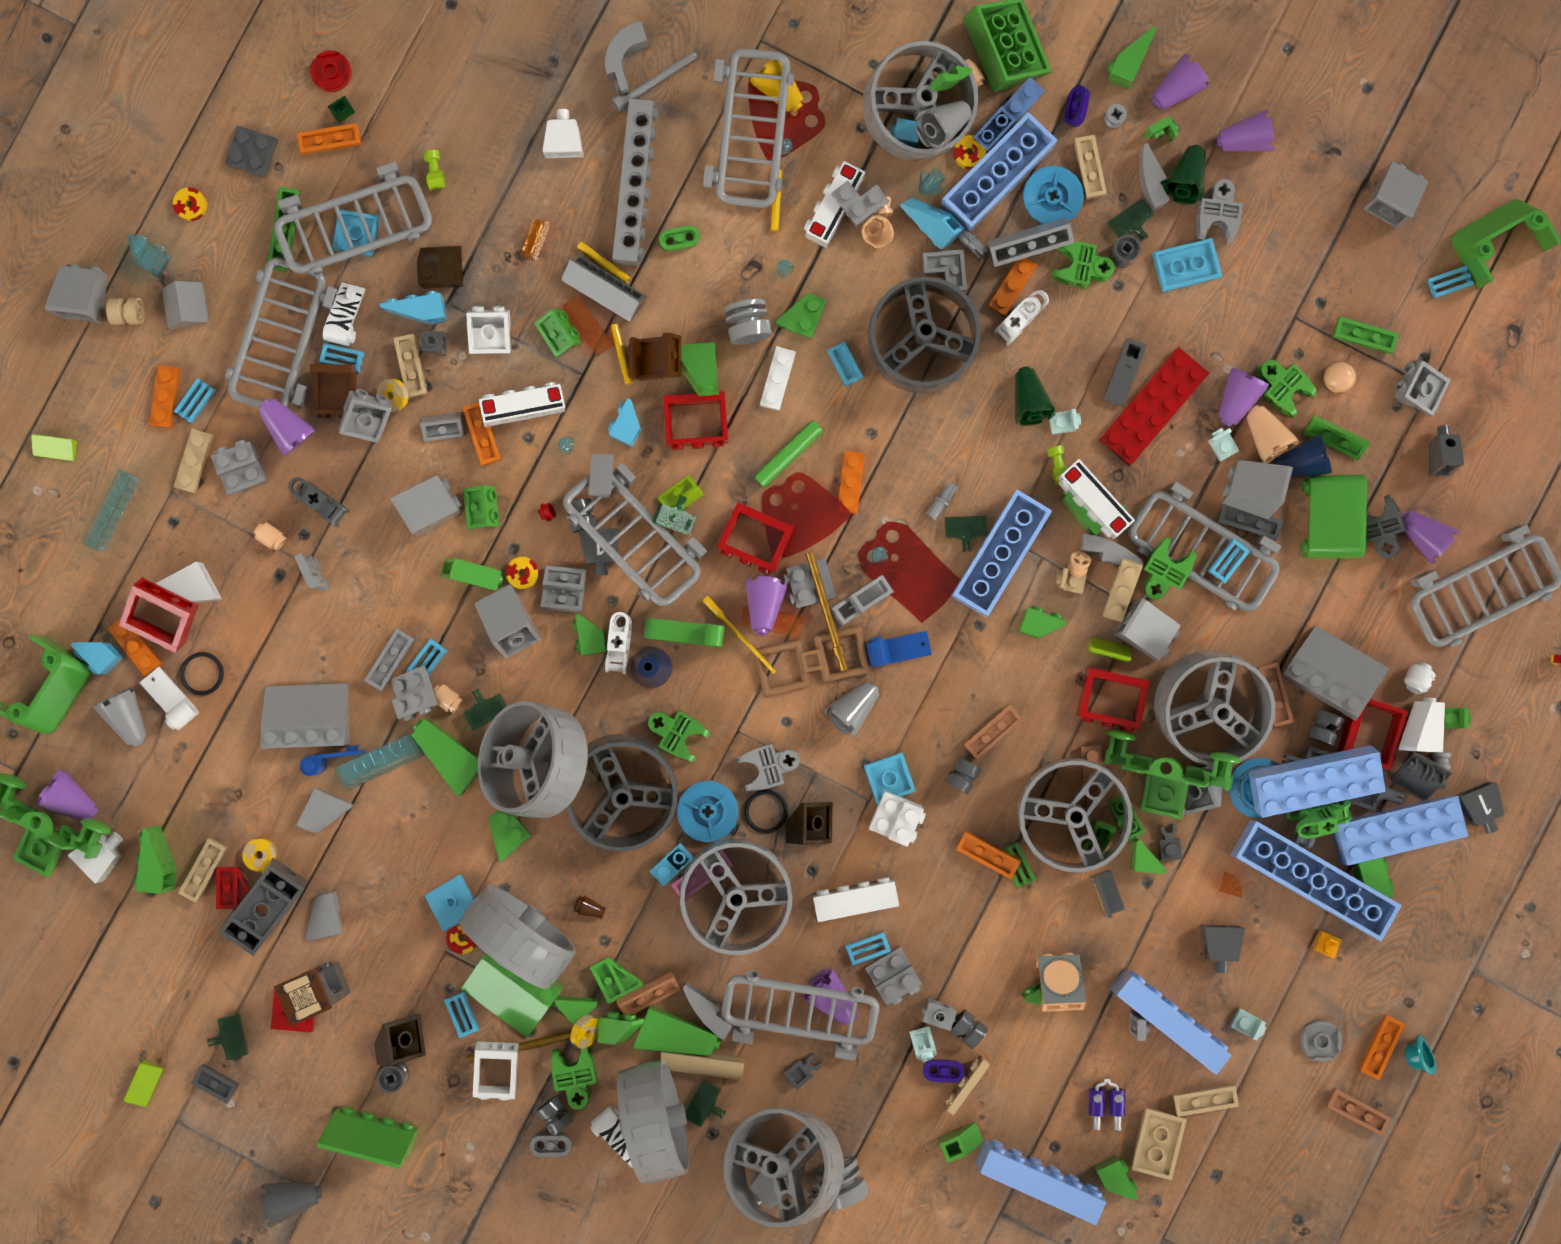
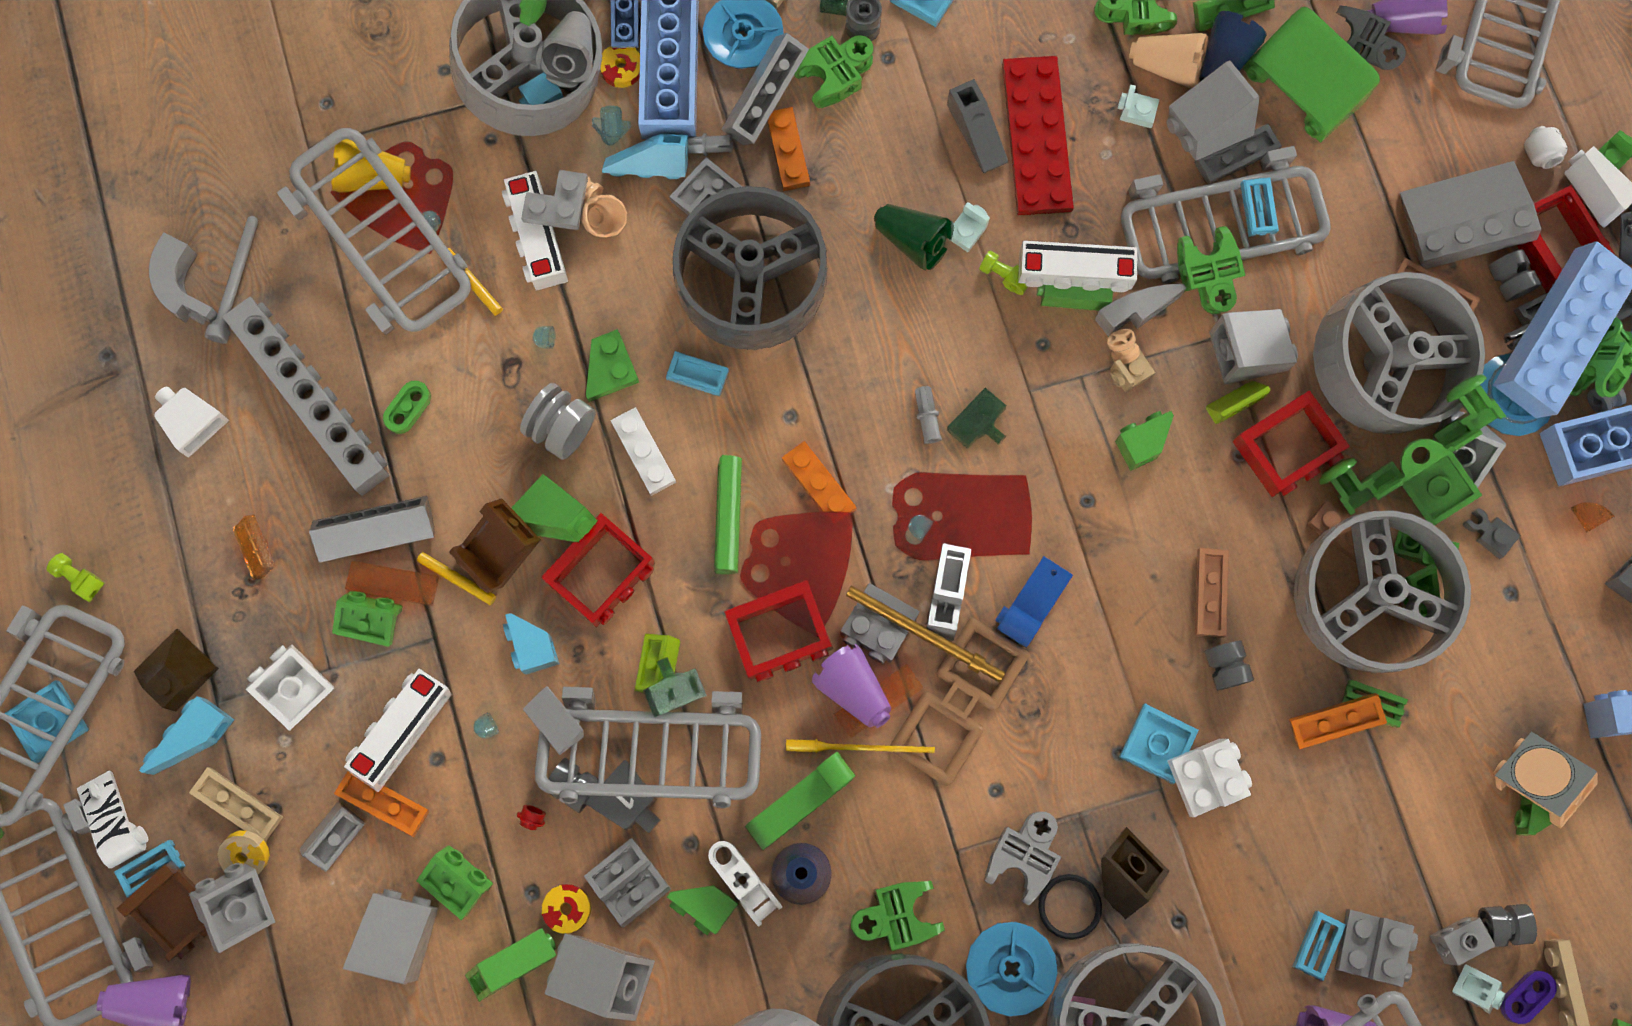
camera: 45 degrees left, 10 degrees down
(434, 342) = (239, 753): dark grey bracket -> none
(603, 262) = (348, 504): yellow bar -> none
(853, 708) = (1051, 707): light grey cone -> none
(855, 900) = (1256, 906): white brick -> none
(1001, 553) = (1039, 408): light blue brick -> none
(1021, 317) = (827, 180): white piece -> none
(1107, 893) = (1489, 643): dark grey panel -> none
(1122, 590) = (1190, 330): tan plate -> none
(1143, 860) = (1489, 573): bright green slope -> none
(1239, 396) = (1108, 47): medium lavender cone -> none

